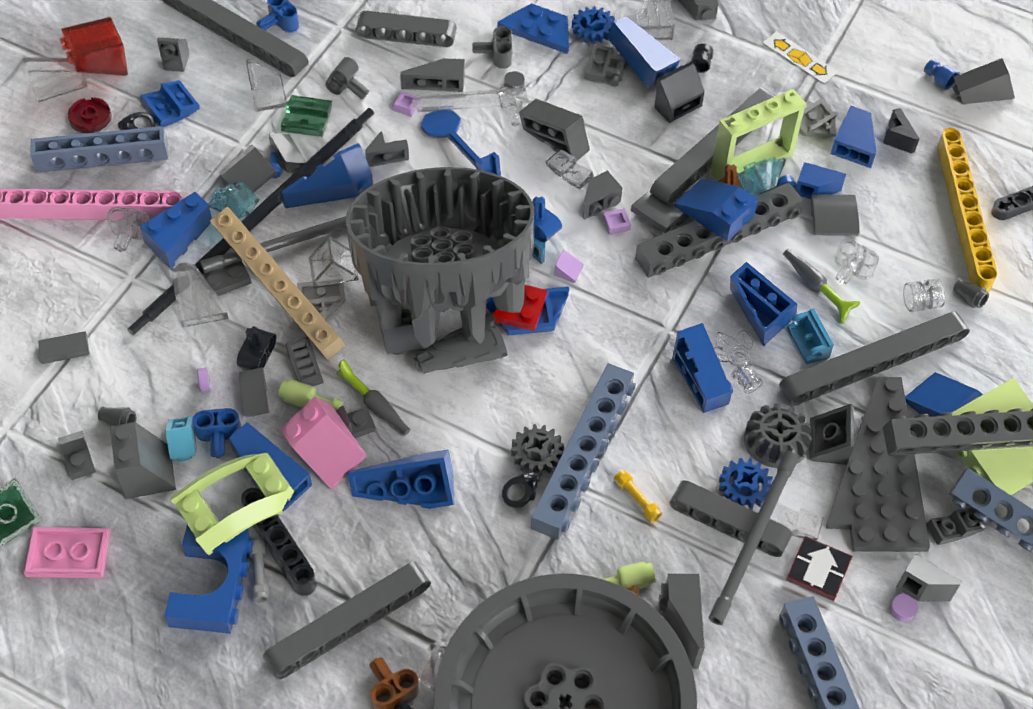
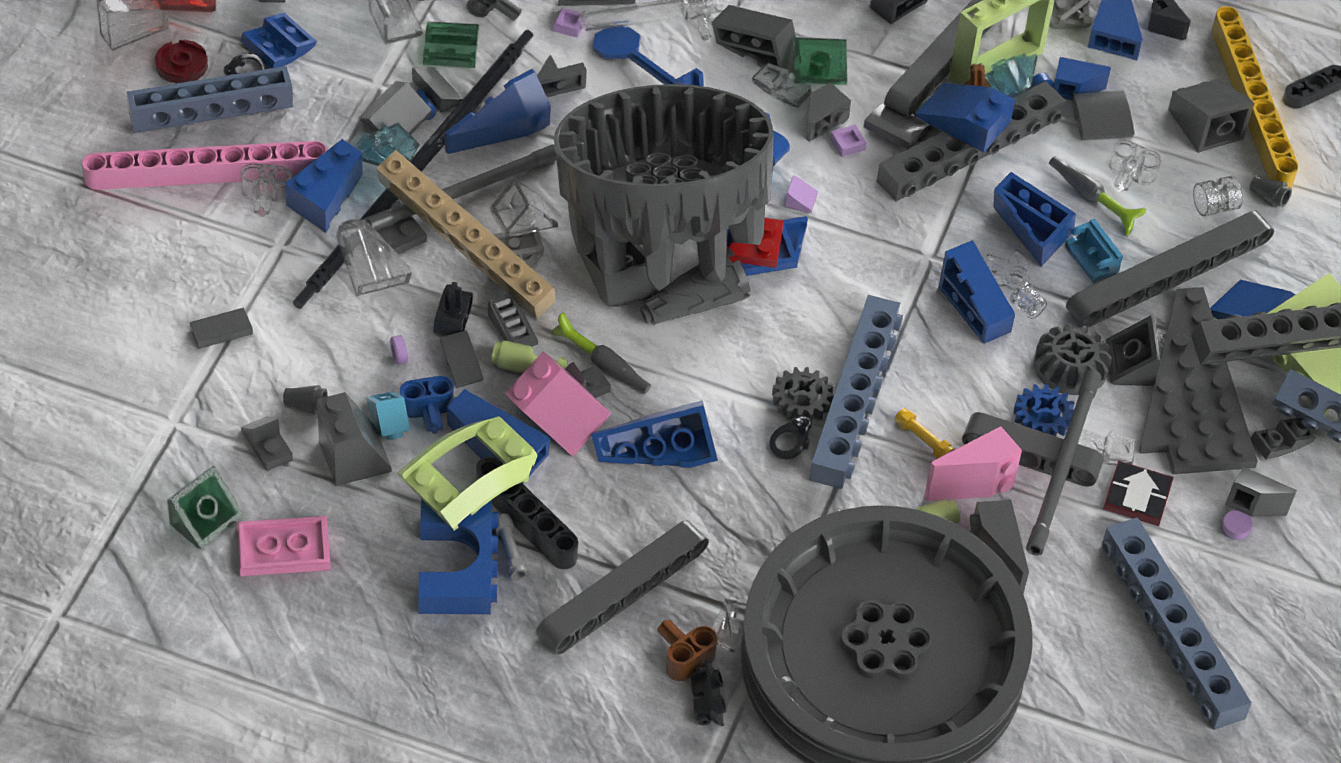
camera: 10 degrees left, 5 degrees down
(602, 151) = (819, 61): none -> clear green slope
(675, 536) = (975, 469): none -> bright pink slope
(927, 220) = (1211, 113): none -> dark grey slope

